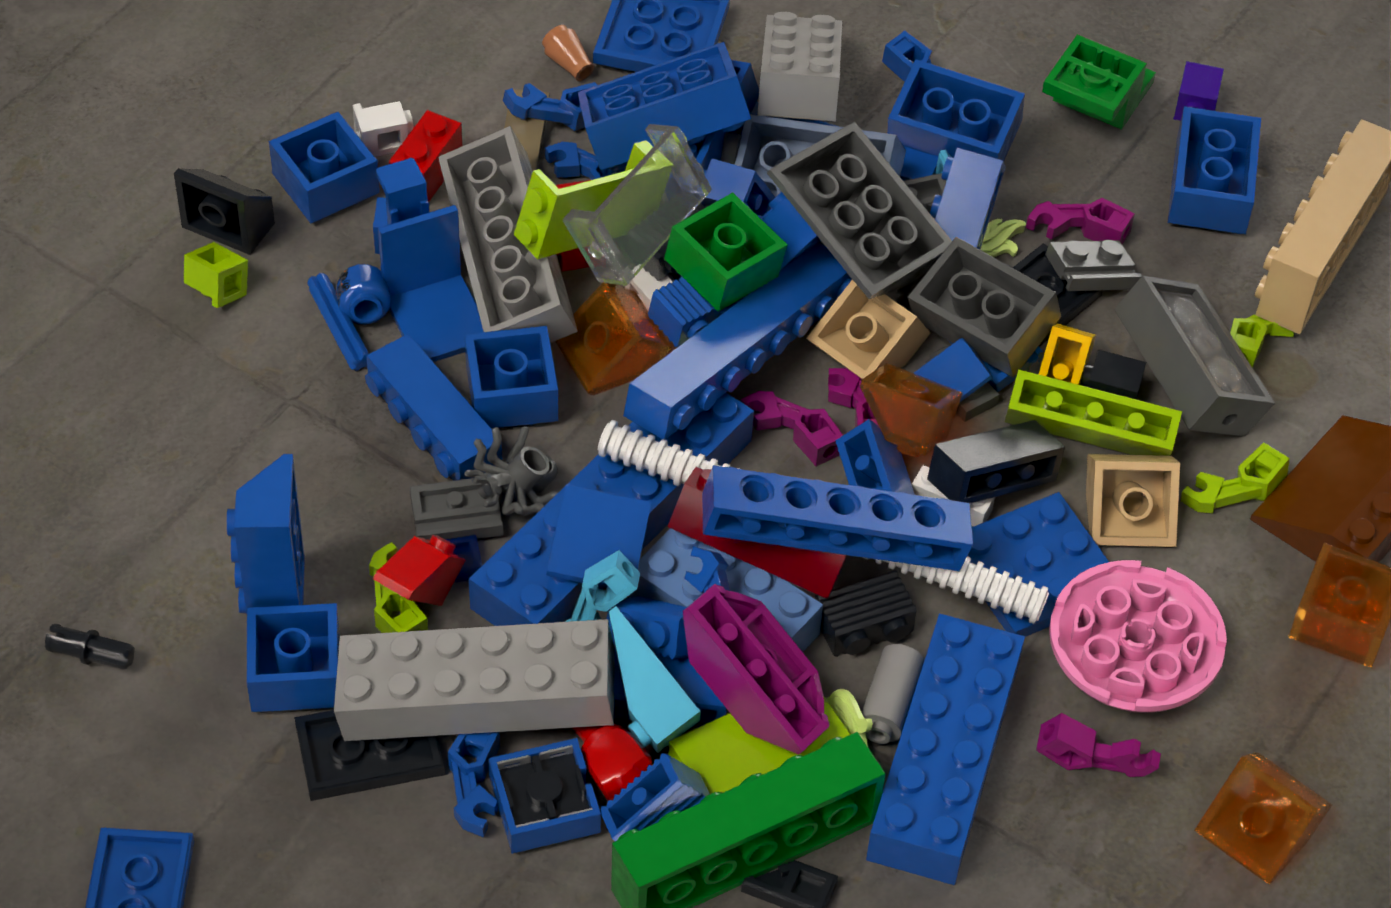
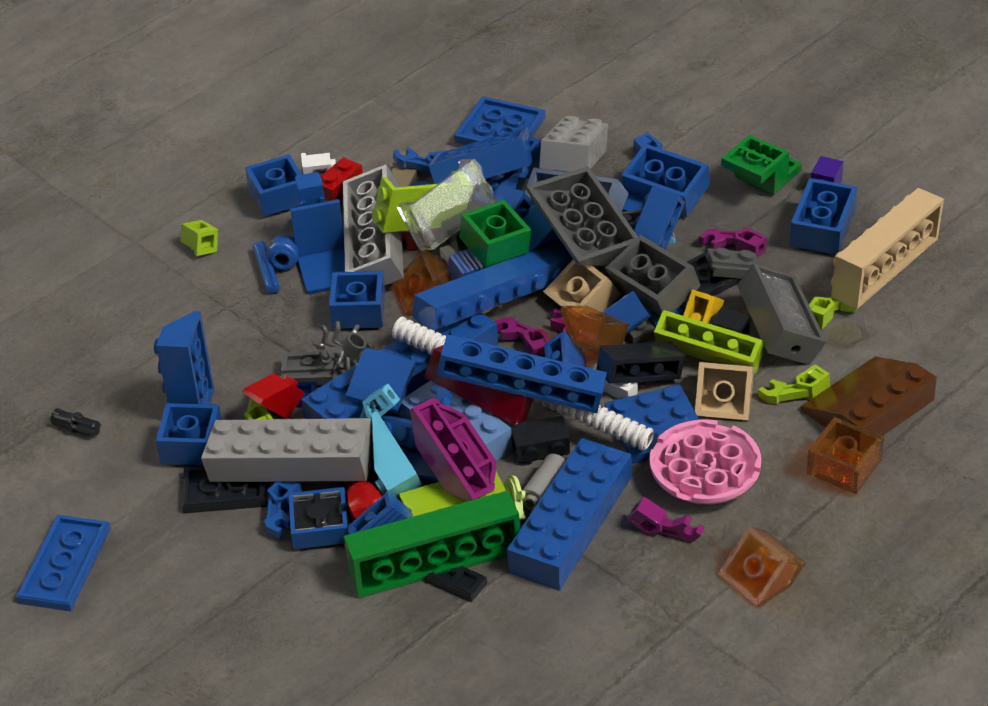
camera: 15 degrees right, 10 degrees down
(223, 209) = (212, 203): black slope -> none
(428, 406) = (304, 310): blue brick -> none
(567, 51) = (438, 133): nougat cone -> none
(998, 237) = (681, 246): yellowish green piece -> none

